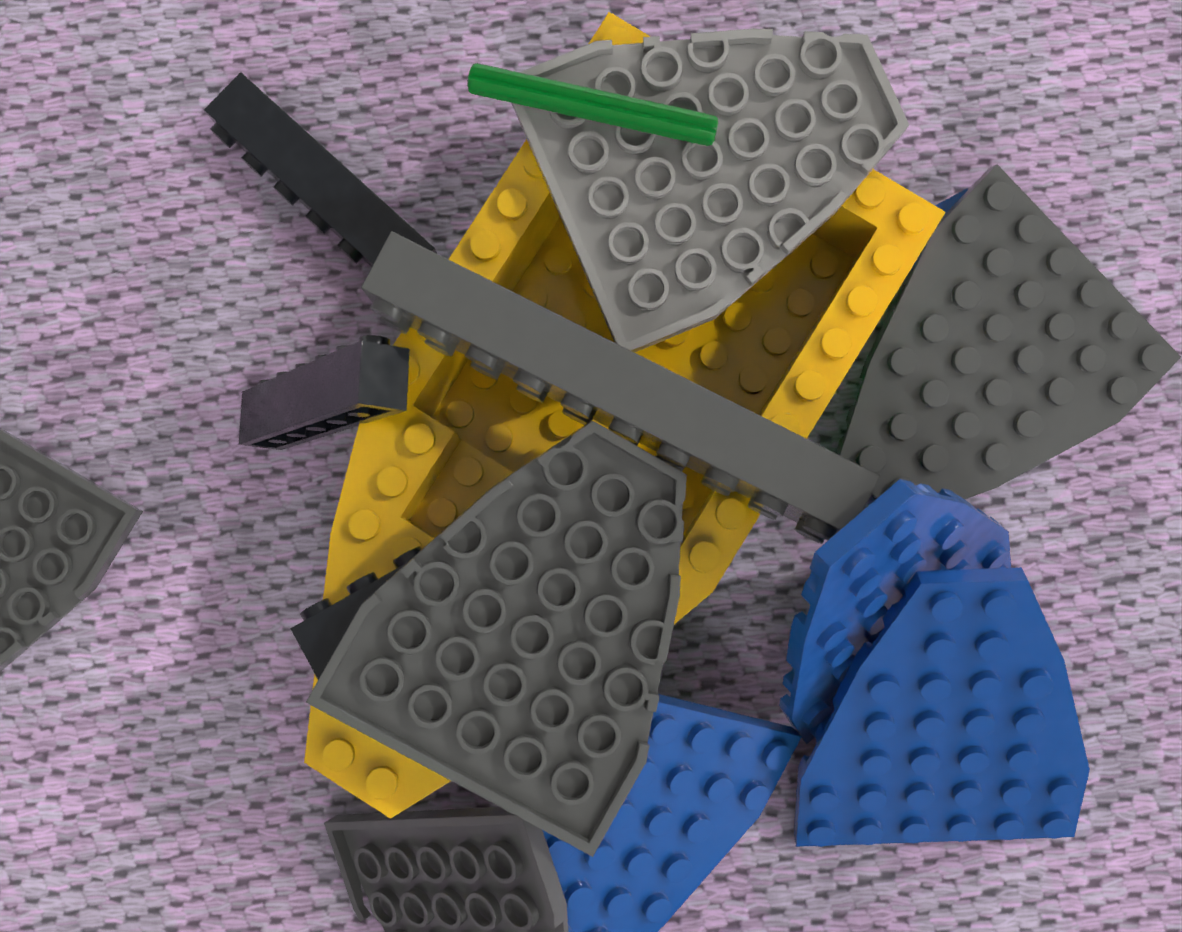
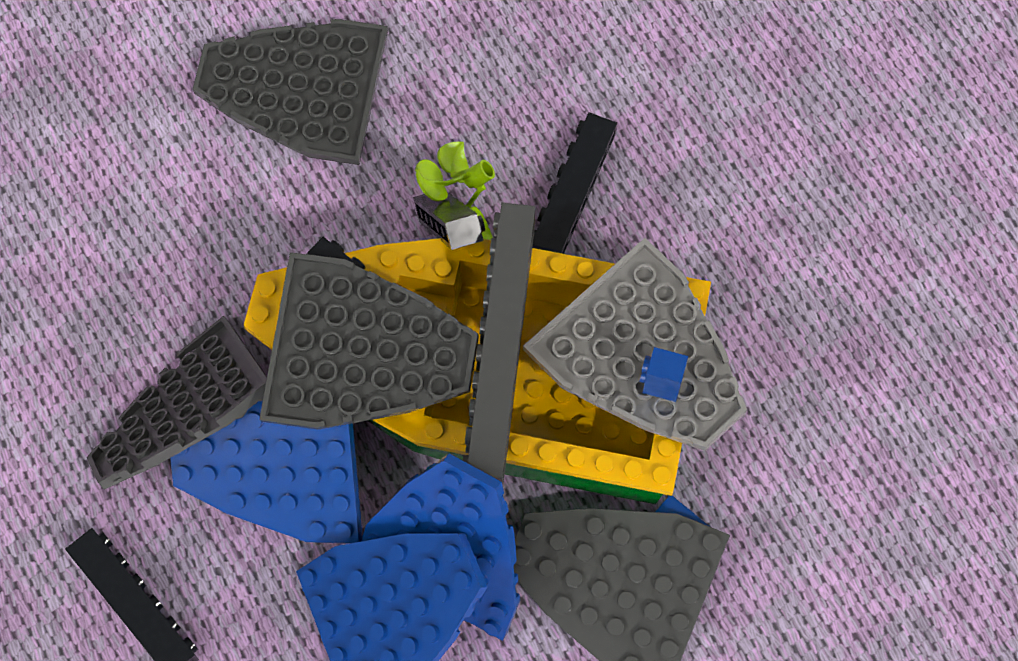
camera: 65 degrees right, 15 degrees down
(206, 357) = (453, 161): none -> lime plant
(592, 104) = (647, 284): green axle -> none
(782, 131) = (663, 374): none -> blue brick

